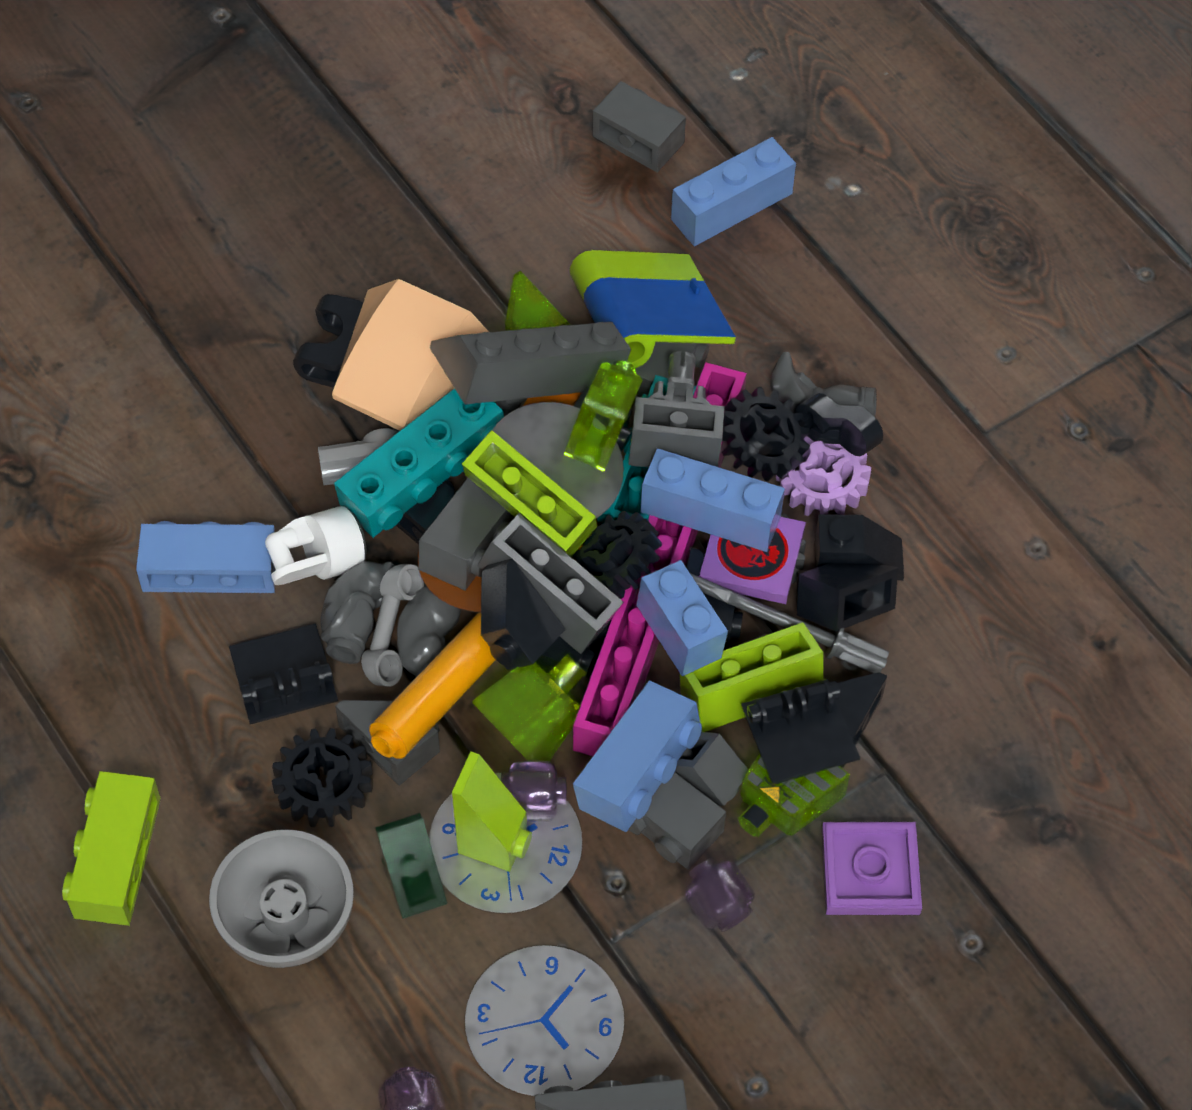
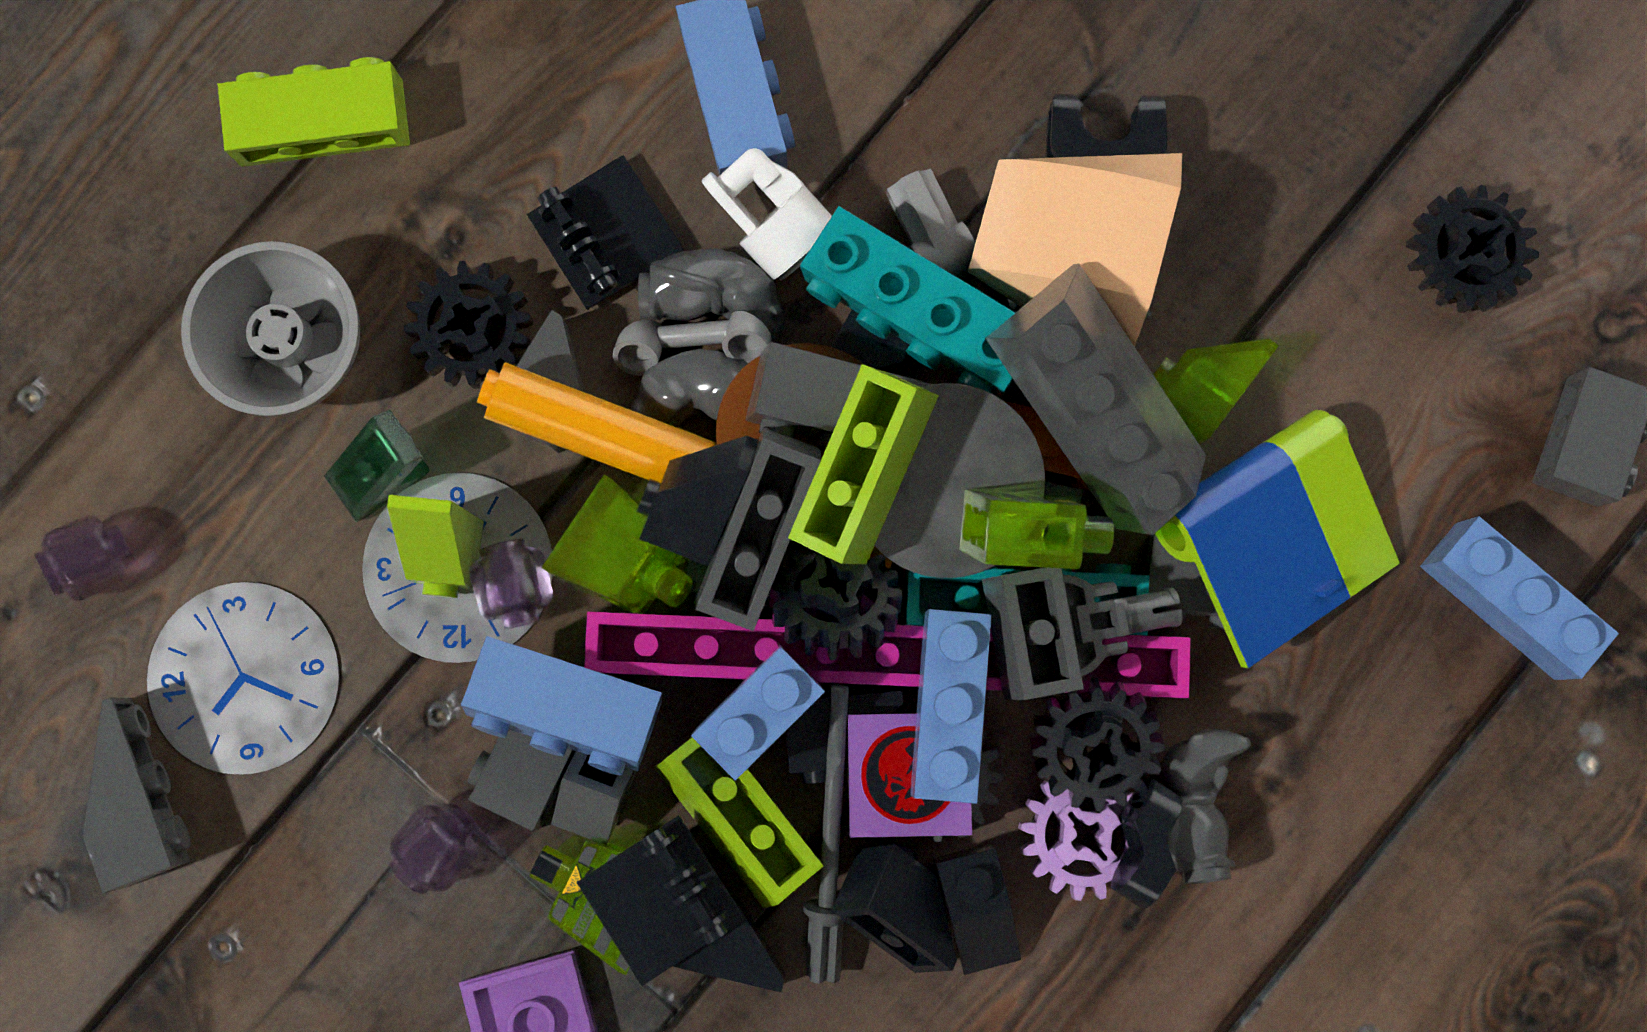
camera: 75 degrees right, 25 degrees up
(490, 158) = (1489, 269): none -> black gear

